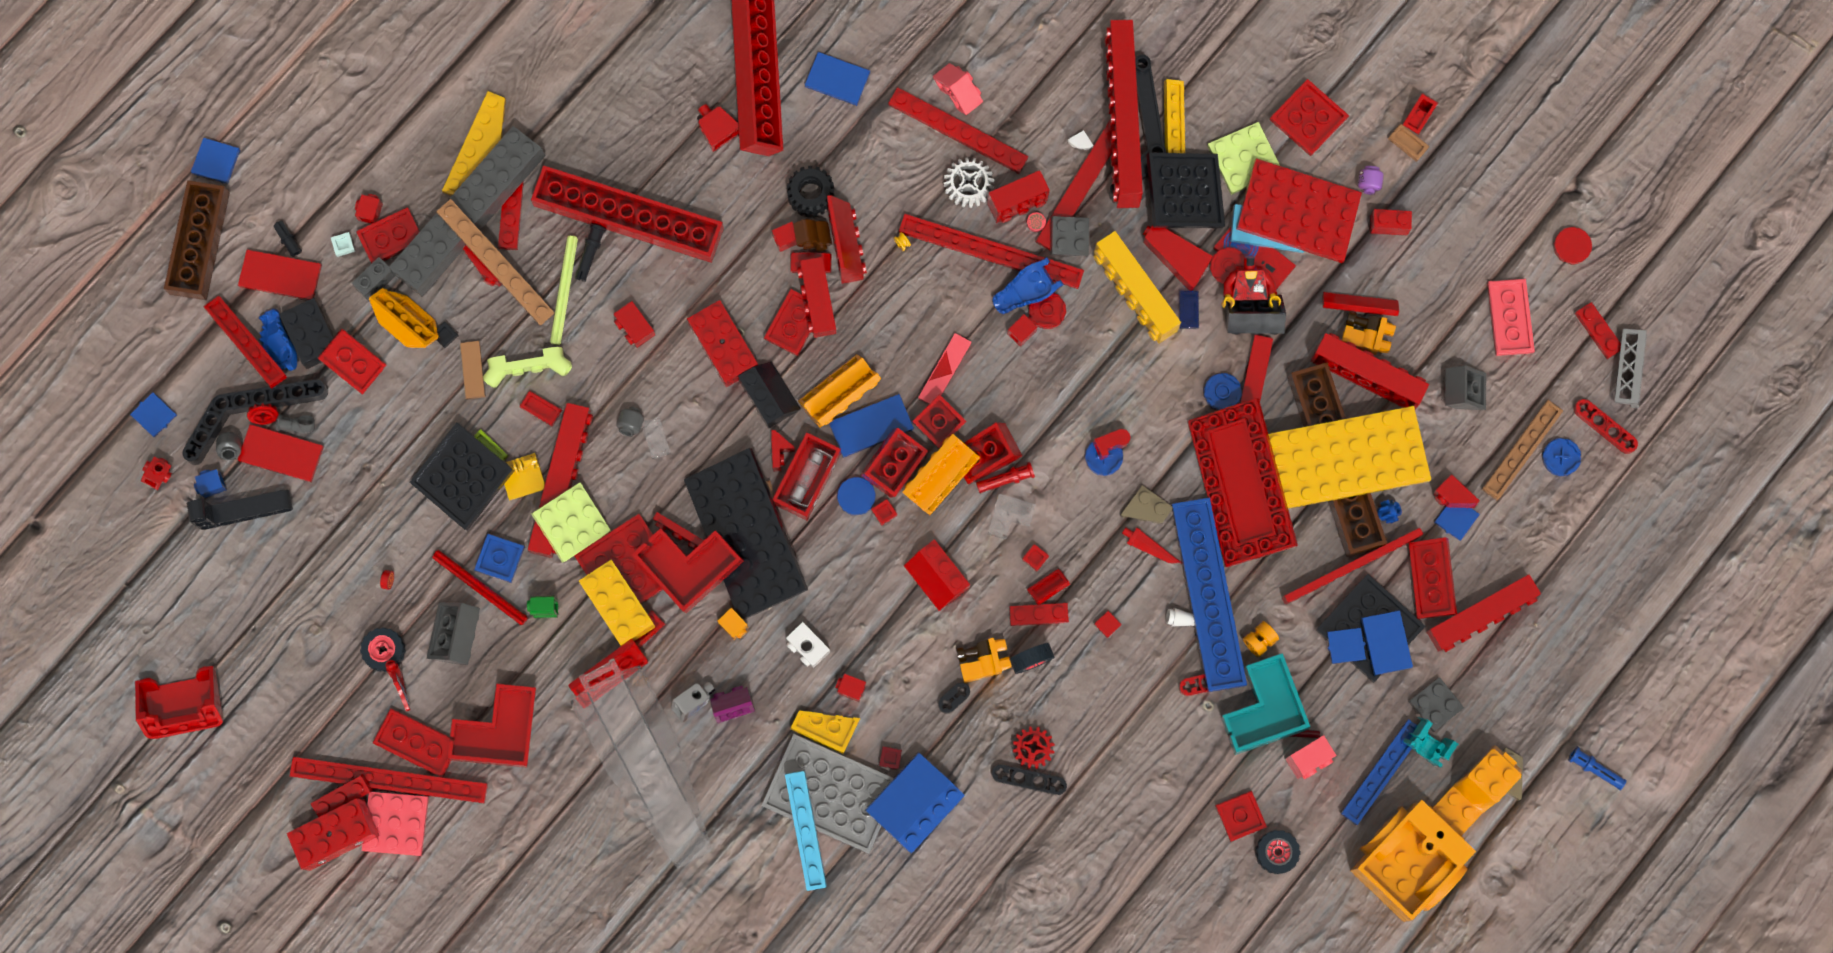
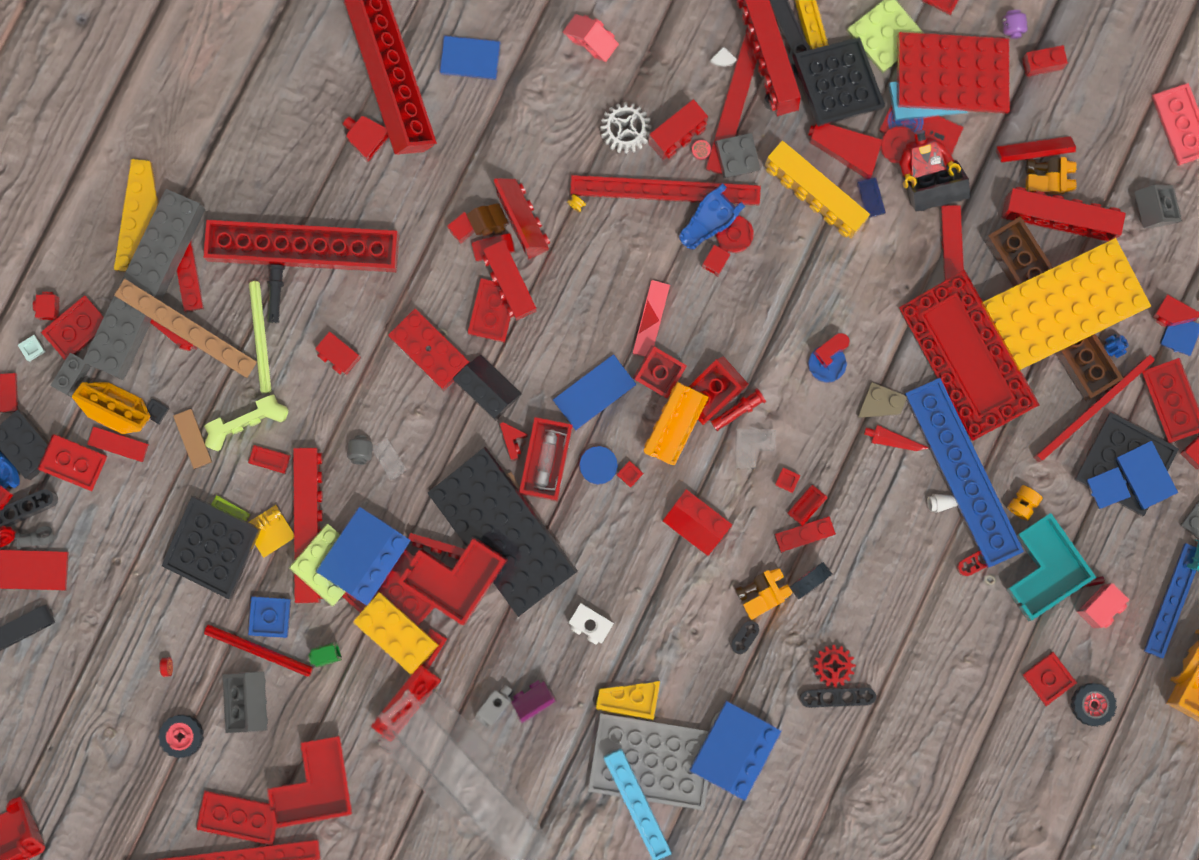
camera: 10 degrees left, 5 degrees up
(395, 673) = (205, 765): red arm -> none
(399, 356) = (118, 444): none -> red tile
(605, 521) = (363, 555): none -> blue slope
(733, 624) = (513, 622): light orange brick -> none
(805, 177) = (469, 162): black tyre -> none
(839, 391) = (555, 367): light orange brick -> none
(850, 687) = (643, 653): red brick -> none
(890, 758) = (699, 712): dark red plate -> none
(894, 462) = (627, 424): red brick -> none
(958, 130) = (601, 78): red plate -> none
(1107, 624) = (873, 526): red tile -> none
(1222, 391) = (925, 270): blue tile -> none

